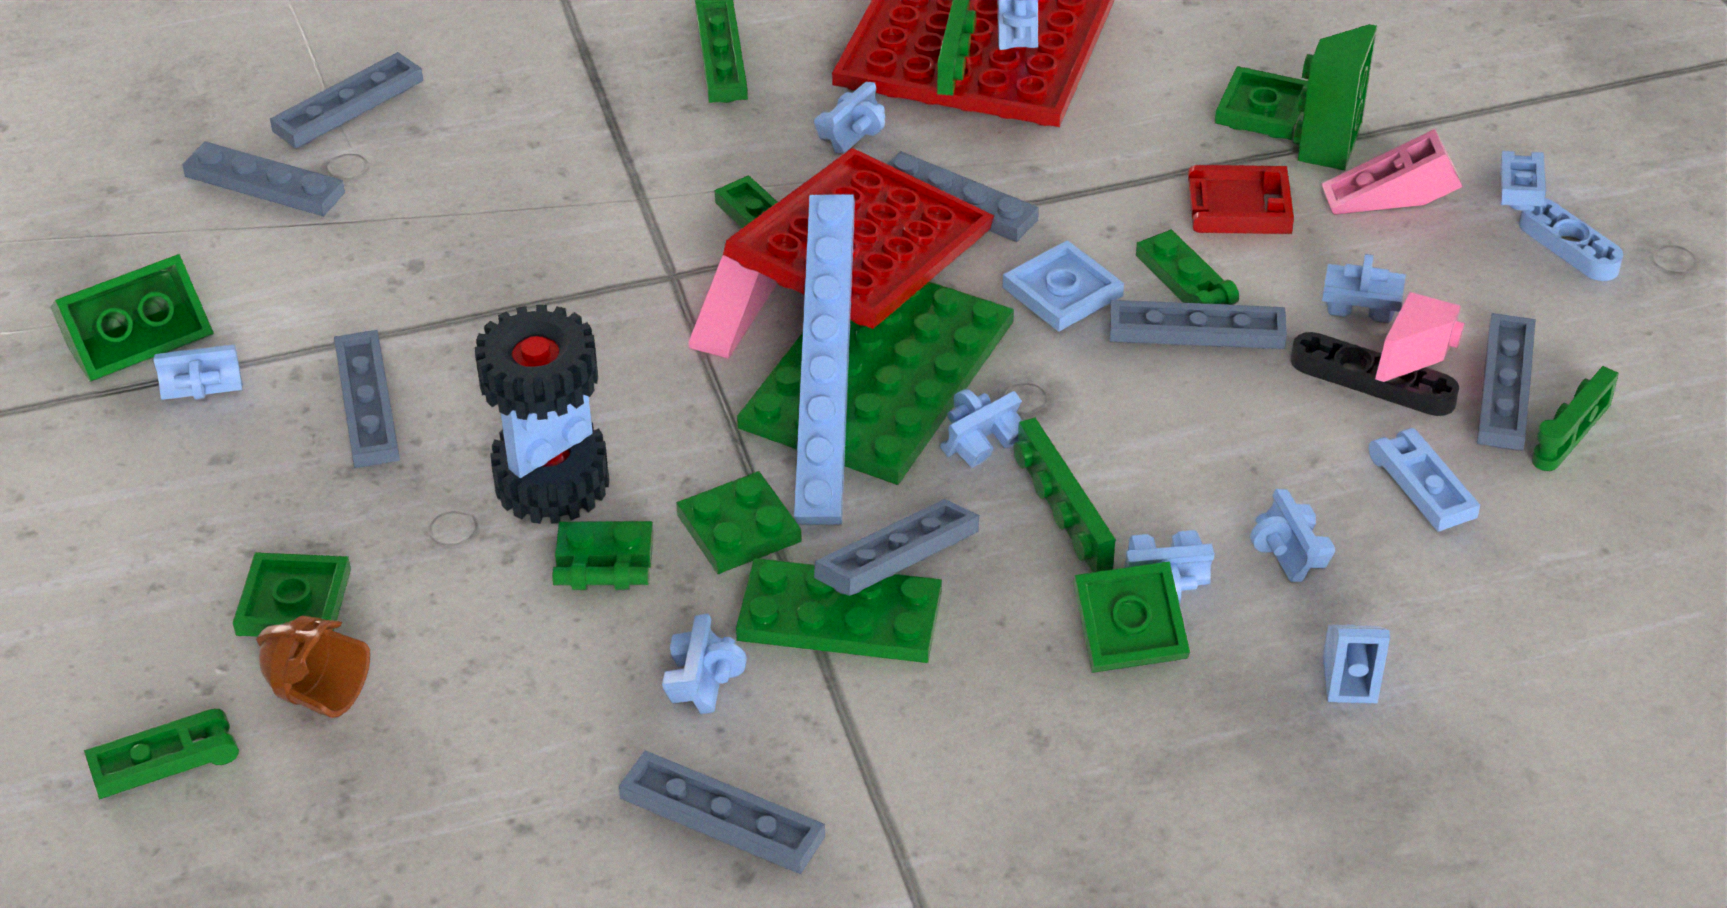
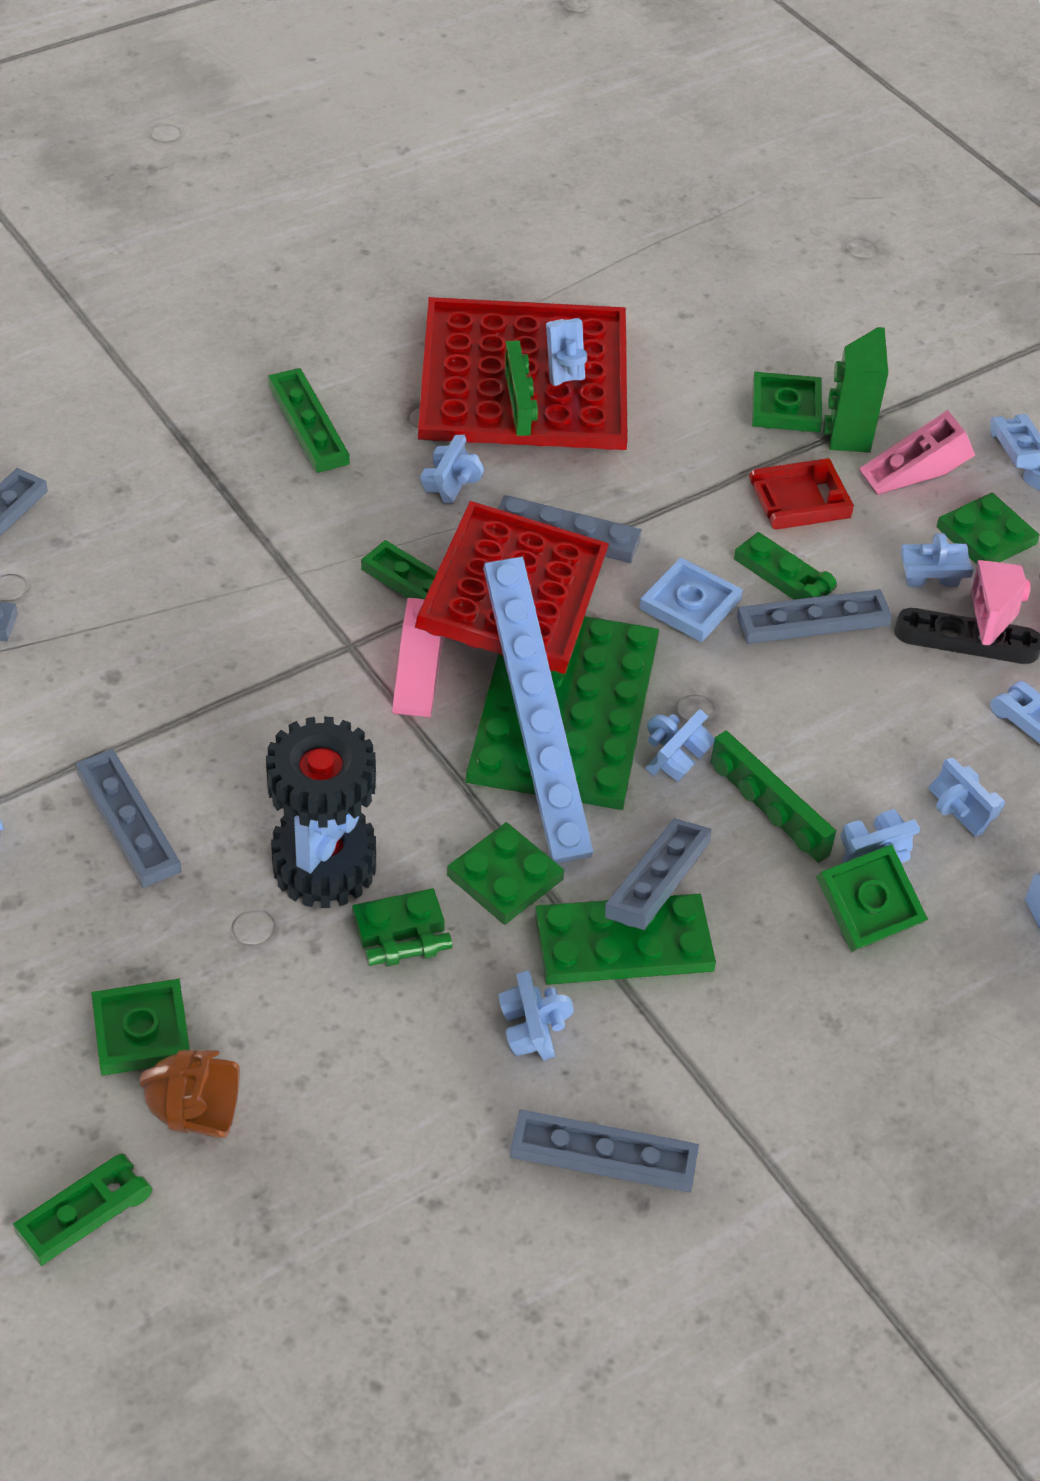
camera: 20 degrees left, 5 degrees up
(1448, 268) = (988, 529): none -> green plate

